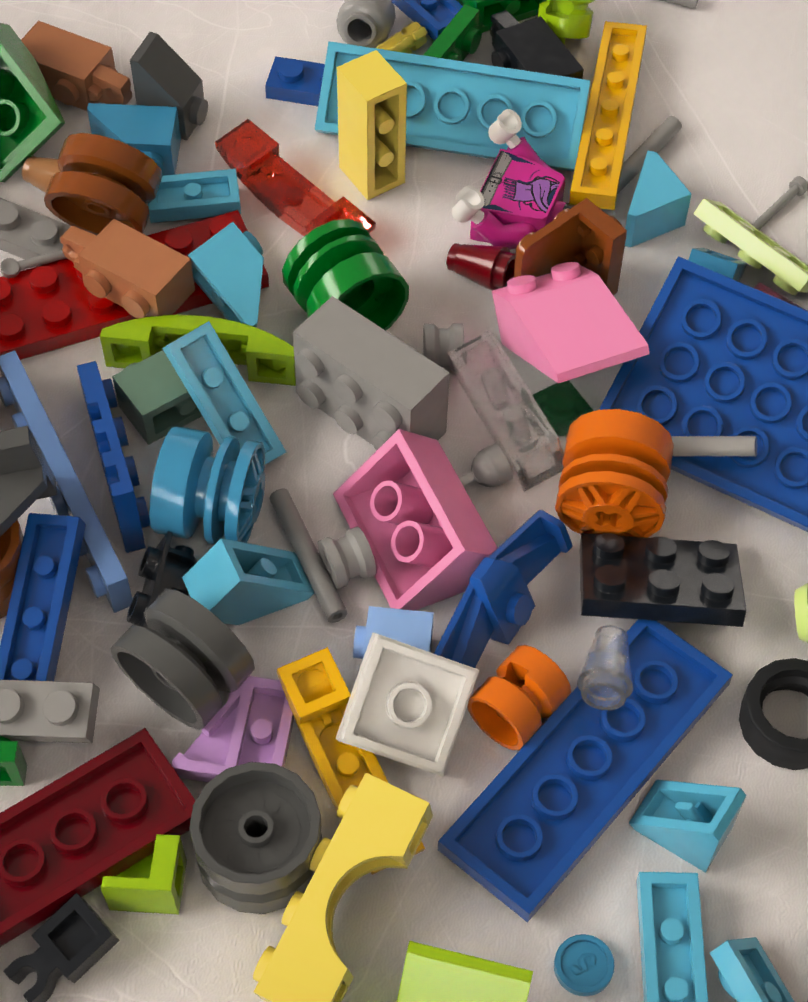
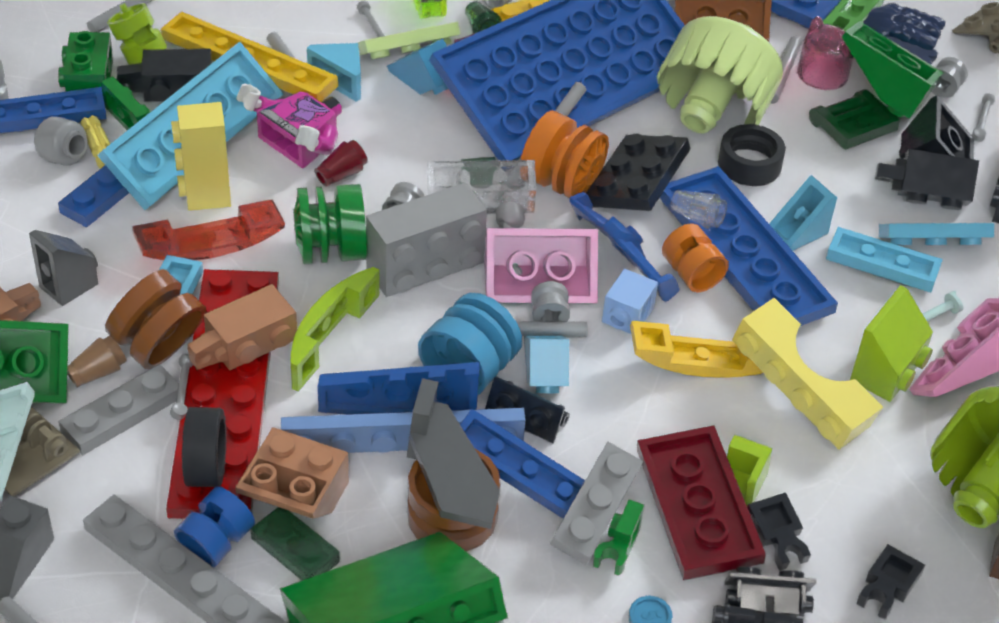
camera: 70 degrees left, 10 degrees down
(146, 128) = (89, 298): dark azure slope -> none
(154, 397) = (353, 341): sand green brick -> none
(183, 658) = (606, 393): dark grey wheel -> none
(221, 390) = (390, 310): medium azure plate -> none
(231, 273) = (291, 275): medium azure slope -> none
(248, 728) = (661, 395): lavender wing -> none
(255, 836) = (747, 398): dark grey wheel -> none
(407, 704) = (684, 302): white tile -> none
(566, 323) = (436, 131): bright pink slope -> none
(579, 236) = (377, 109): dark orange bracket -> none
(584, 965) = (867, 300): dark azure piece -> none

